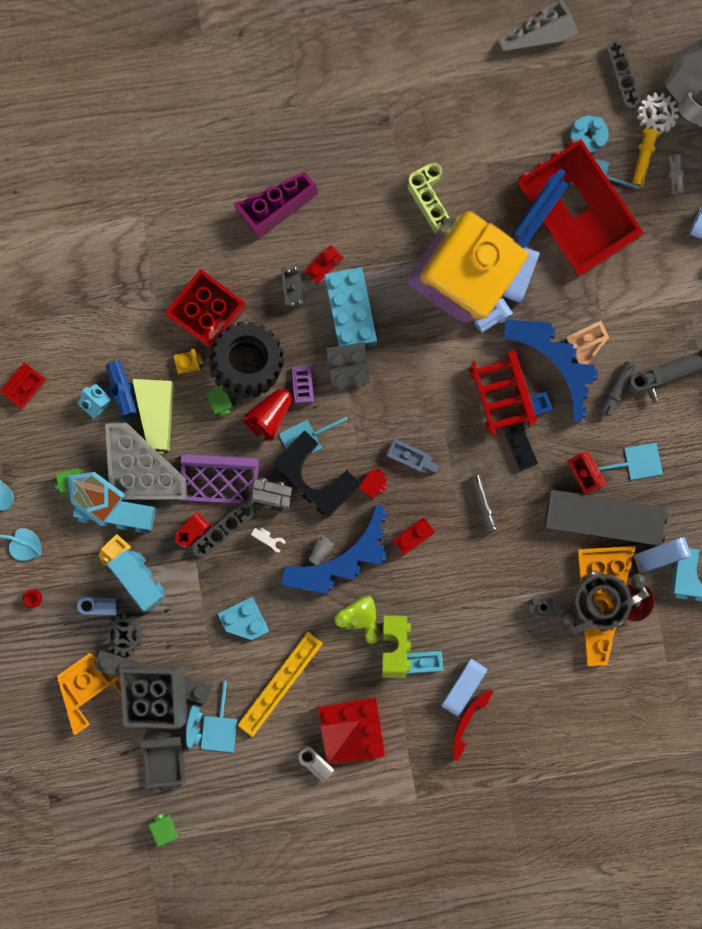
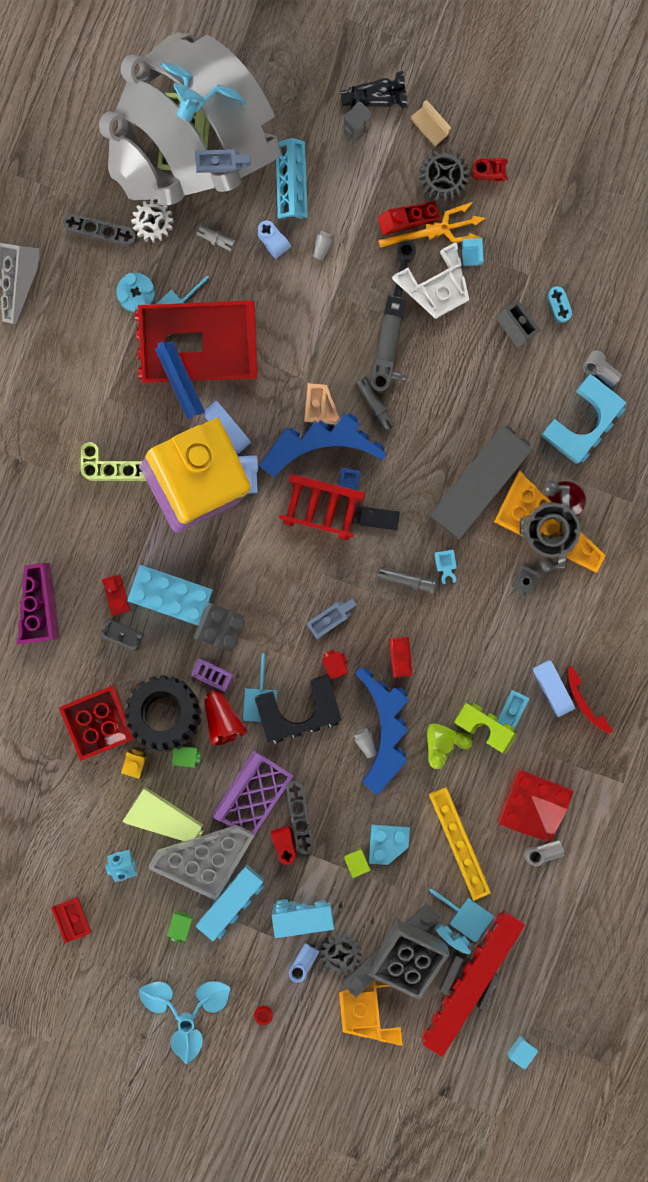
camera: 55 degrees left, 5 degrees up
(94, 495) = (206, 913): tile -> none
(113, 549) = (262, 922): yellow bracket -> none
(121, 389) = (125, 836): blue piece -> none
(127, 847) = (522, 1052): none -> medium azure panel
(163, 829) = (525, 1013): bright green brick -> none
(164, 765) = (472, 983): none -> red brick
(212, 602) = (357, 863): none -> lime panel
(263, 536) = (326, 785): white plate -> none
(269, 495) = (293, 761): dark grey brick -> none
(517, 528) = (446, 562): none -> medium azure plate
(586, 472) = (432, 475): red brick -> none
(641, 461) = (449, 420): medium azure piece -> none
(646, 149) = (178, 250): yellow pin -> none
(662, 555) = (541, 453): light blue beam -> none

